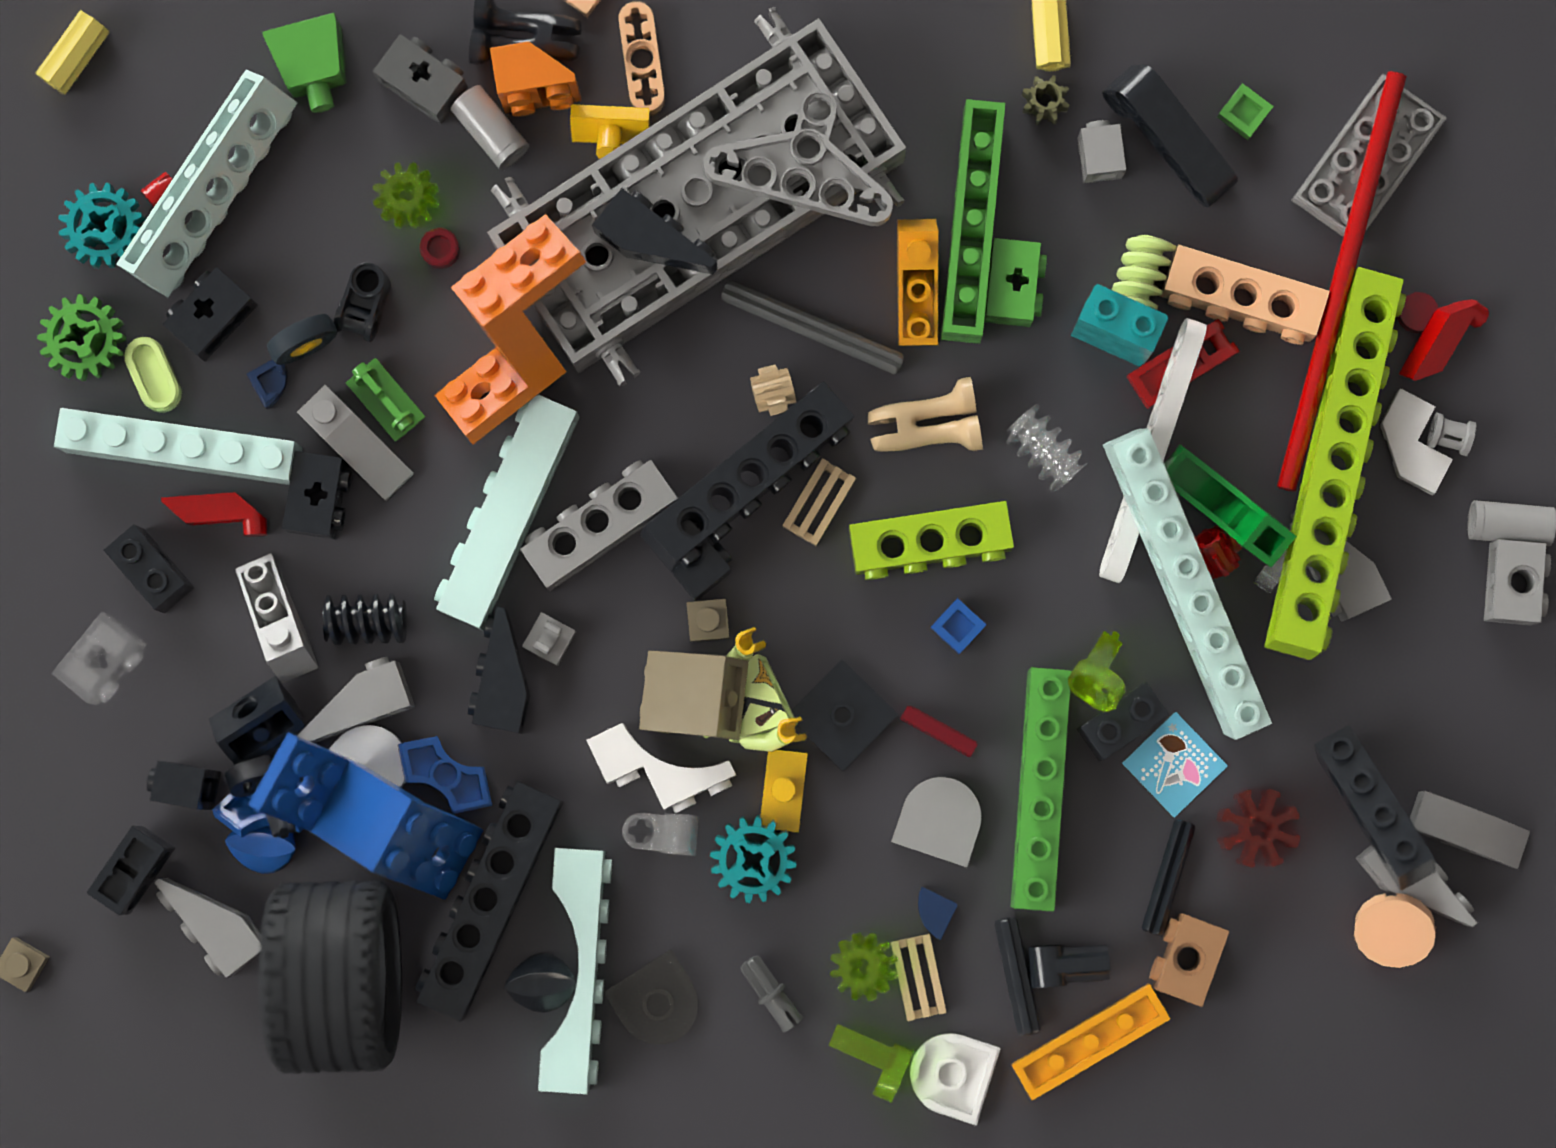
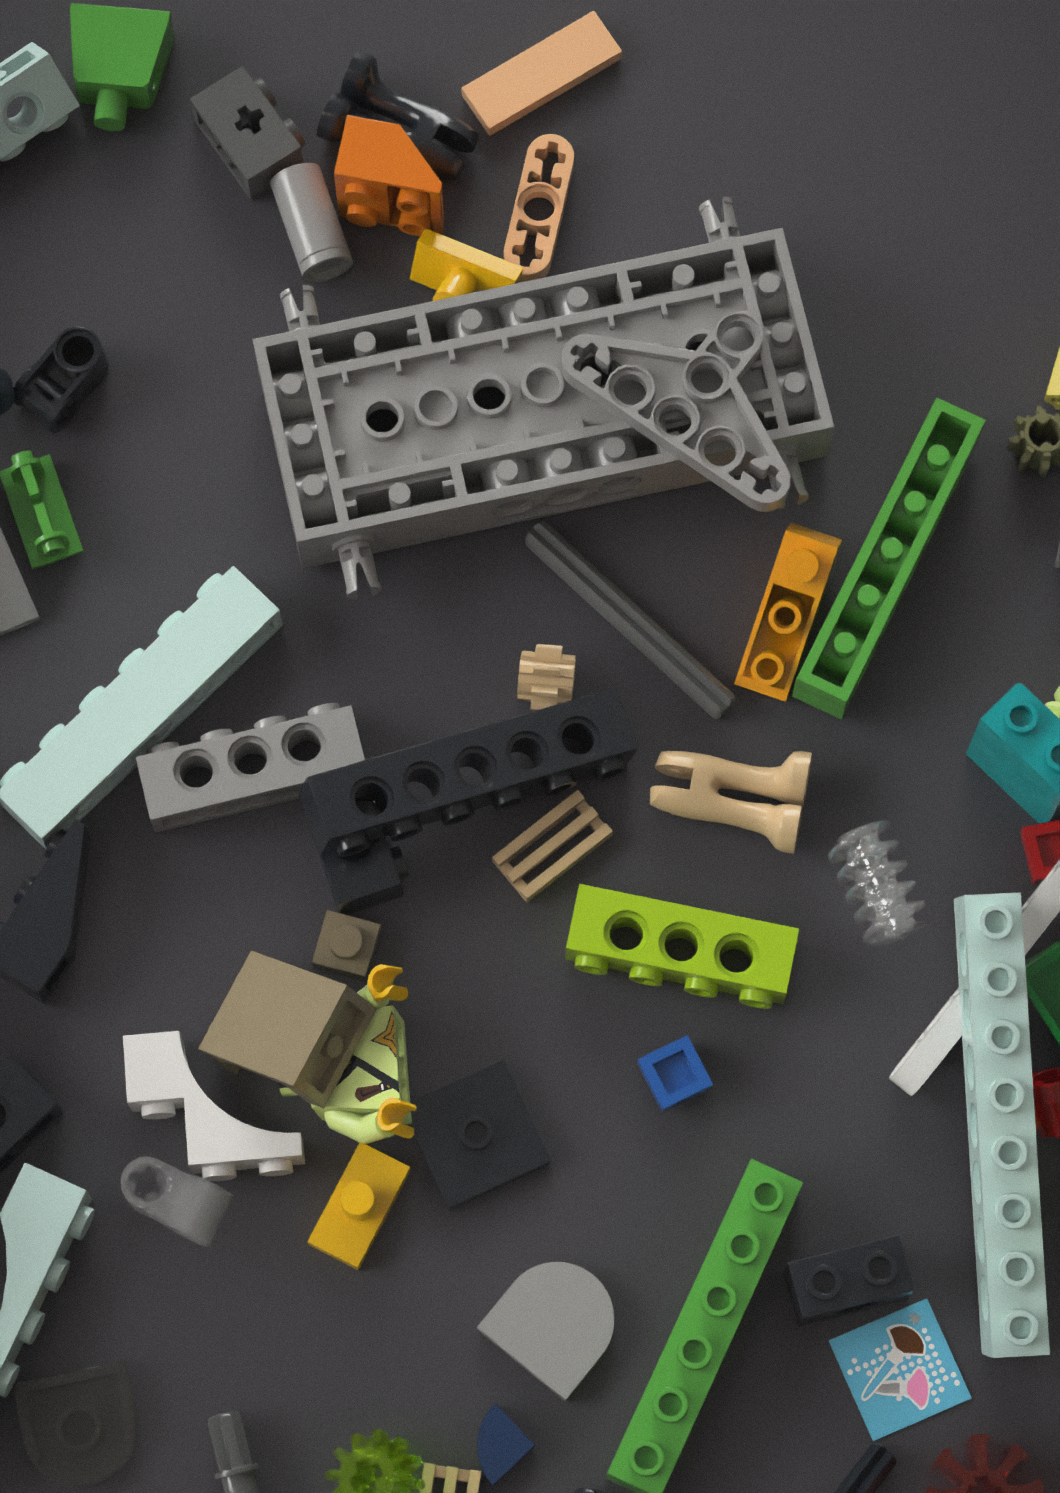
camera: 15 degrees right, 10 degrees down
(410, 182) = (186, 255): clear neon green gear -> none
(439, 248) = (187, 349): dark red tile -> none
(496, 299) = (225, 422): orange bracket -> none
(549, 639) = (129, 892): light grey tile -> none
(645, 236) = (451, 412): black slope -> none
(739, 869) = (259, 1286): teal gear -> none
(939, 731) = (596, 1201): dark red tile -> none
(1011, 259) = (917, 625): bright green brick -> none
(1094, 674) = (834, 1197): clear neon green piece -> none

